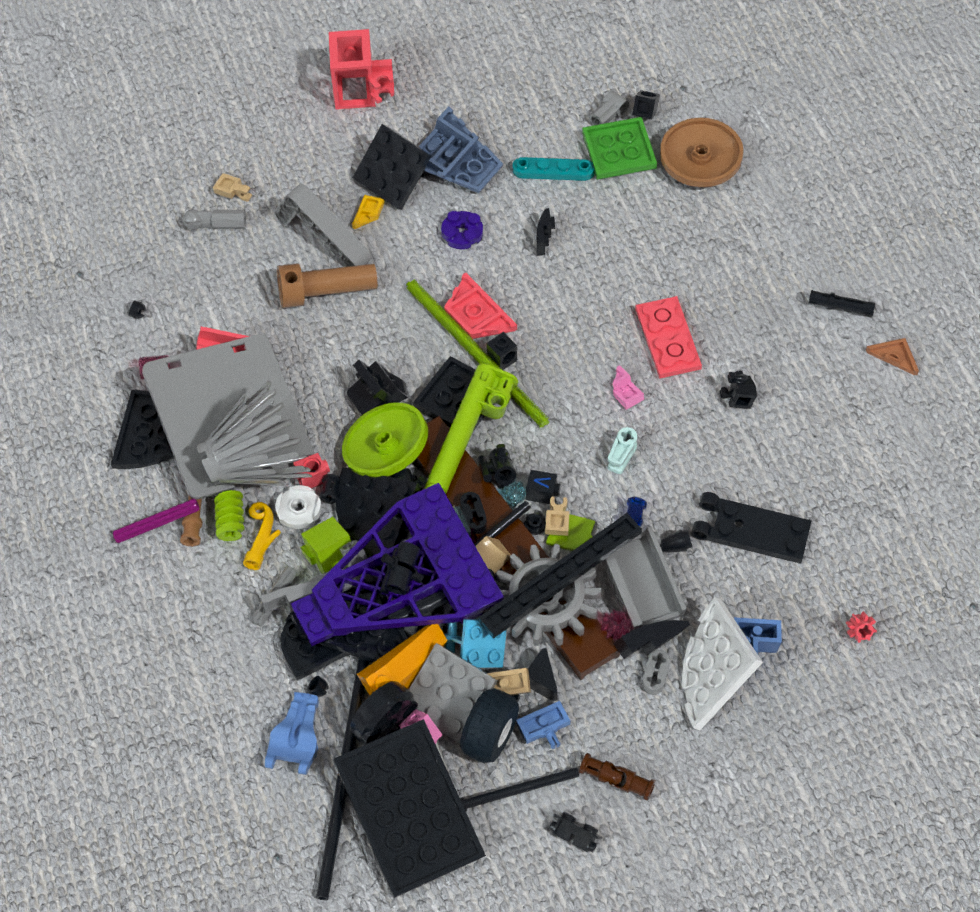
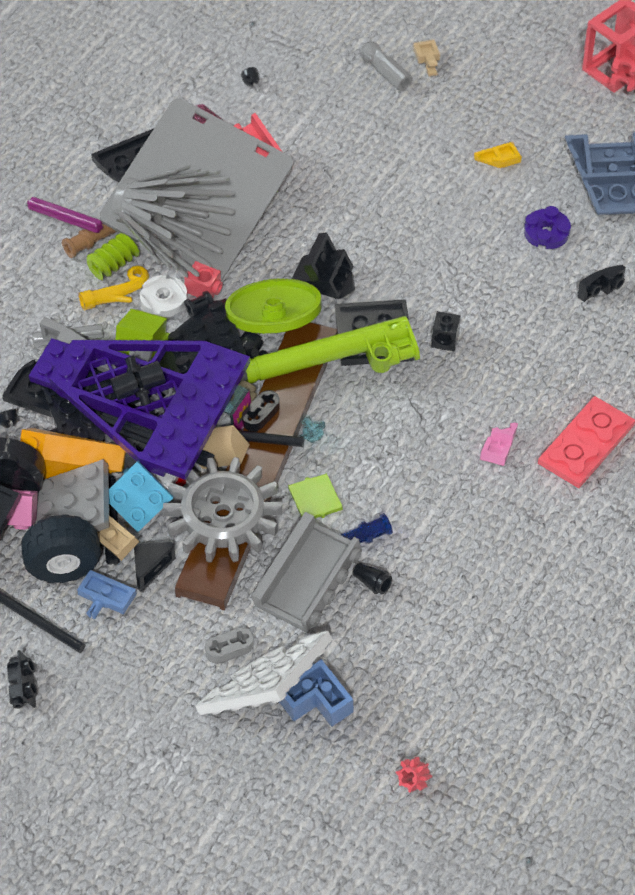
camera: 50 degrees right, 5 degrees down
(296, 285) = (368, 152): medium nougat piece -> none
(324, 224) = (442, 134): light grey beam -> none
(391, 166) = (552, 135): black plate -> none
(473, 348) = (434, 305): lime axle -> none
(477, 311) = (471, 289): coral wing -> none
(499, 465) = (323, 399): black pin -> none
(535, 529) = (298, 470): black plate -> none
(542, 487) = (337, 445): black brick -> none
(557, 518) = (315, 476): tan plate -> none
(559, 575) = (242, 500): black plate -> none
(614, 775) = (99, 678): reddish brown piece -> none
(616, 624) = (242, 580): clear pink gear -> none
(622, 450) = (429, 480): light aqua piece -> none
(649, 637) = (254, 614): black slope -> none
(741, 392) = (578, 529): black piece -> none
(761, 532) = (447, 640): black hinge -> none

